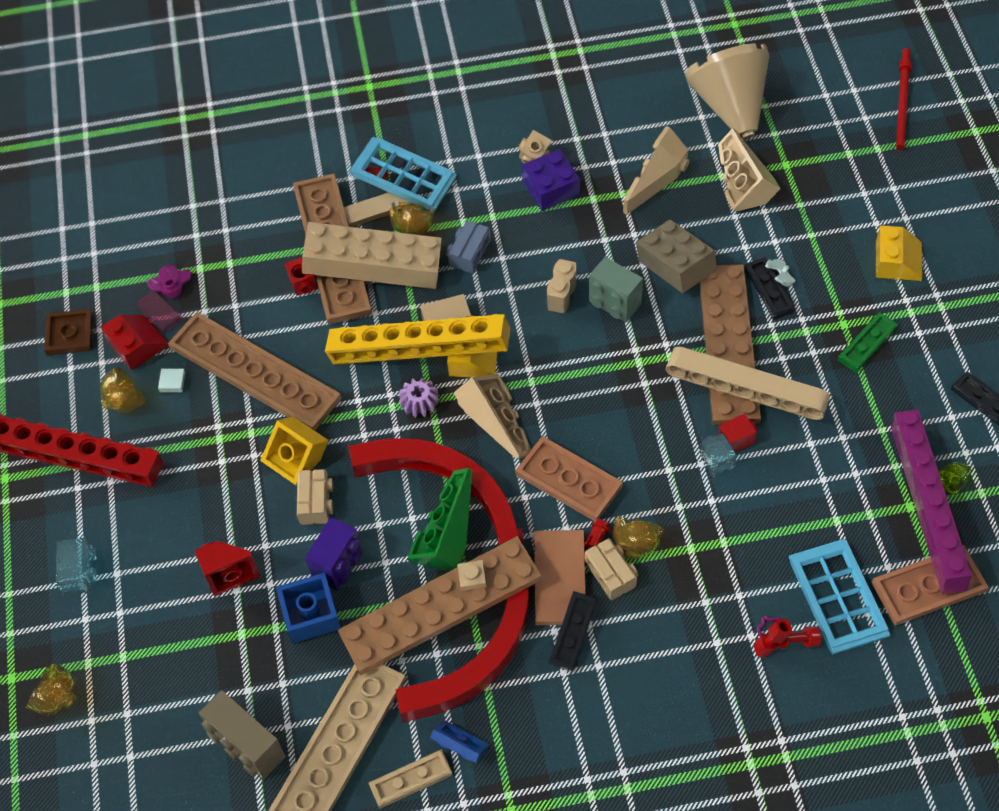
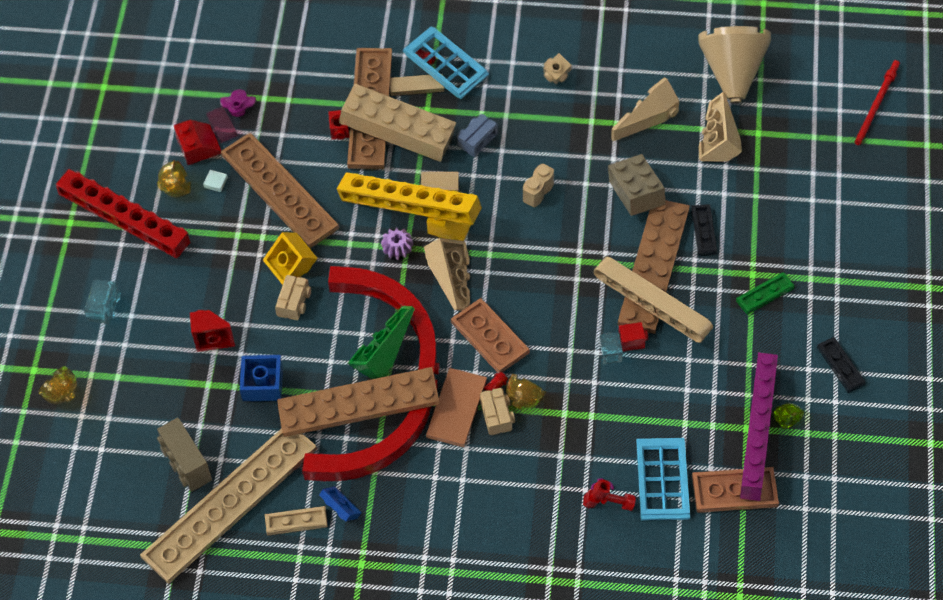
camera: 15 degrees right, 0 degrees up
(68, 332) = (149, 122): reddish brown tile -> none
(334, 553) = (293, 343): dark purple brick -> none
(410, 218) = (438, 100): clear yellow cylinder -> none
(472, 575) = (387, 386): tan plate -> none
(550, 180) = (561, 97): dark purple brick -> none
(573, 631) = (451, 448): black tile -> none
(615, 289) = (577, 199): sand green brick -> none
(784, 276) = (718, 225): light aqua piece -> none
(898, 254) = (818, 230): yellow slope -> none

